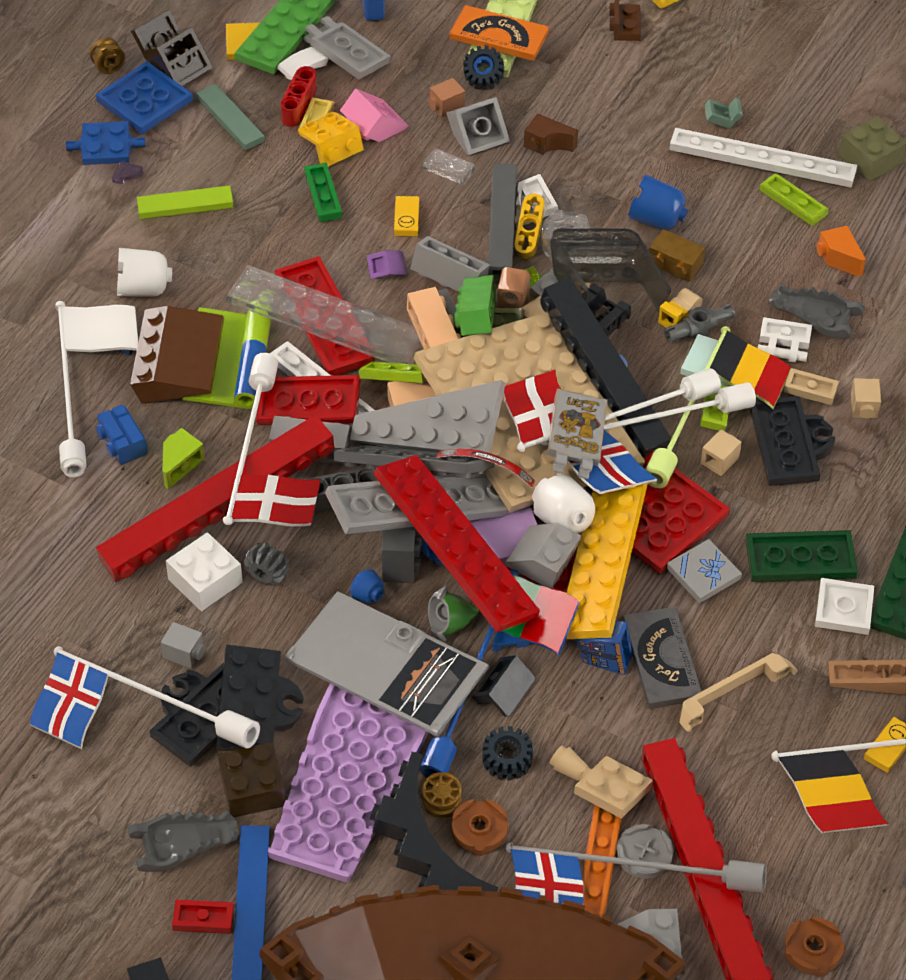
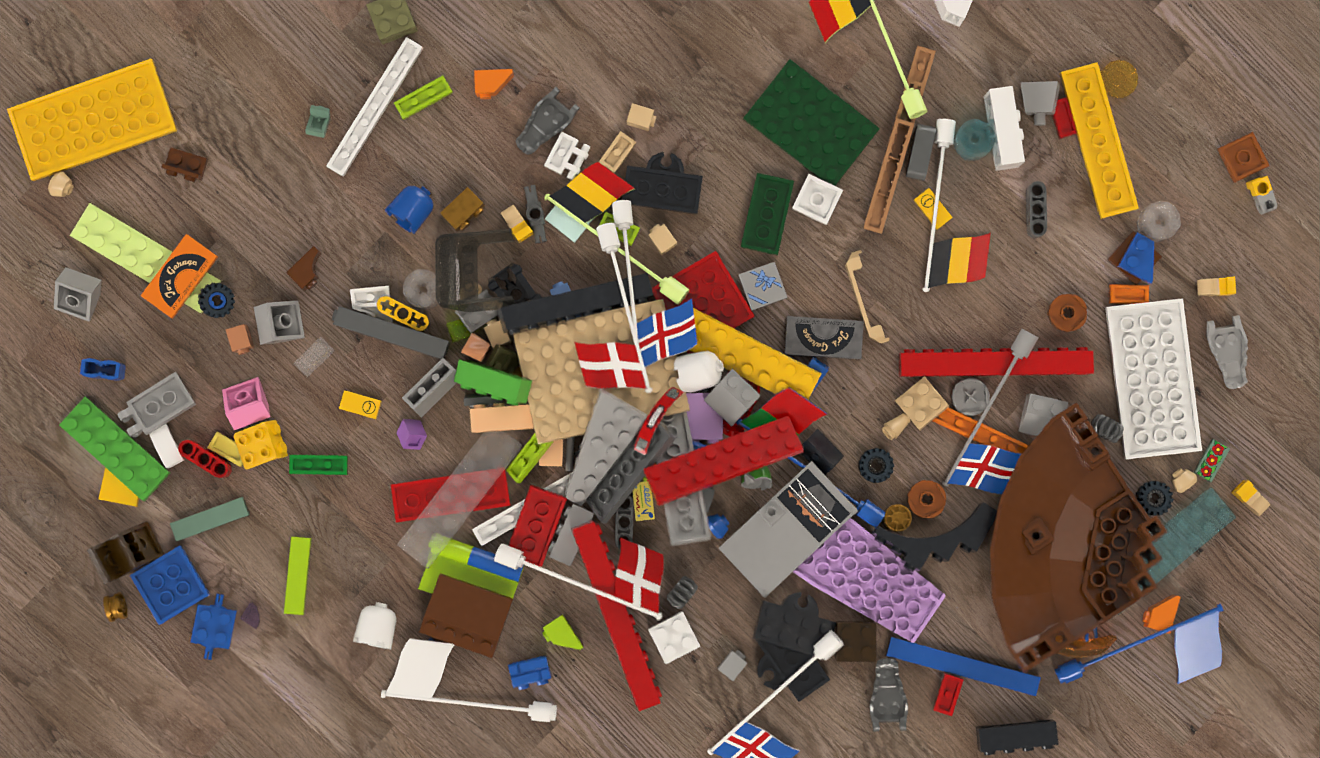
camera: 75 degrees left, 35 degrees up
(576, 431) = (644, 345): light grey tile -> none

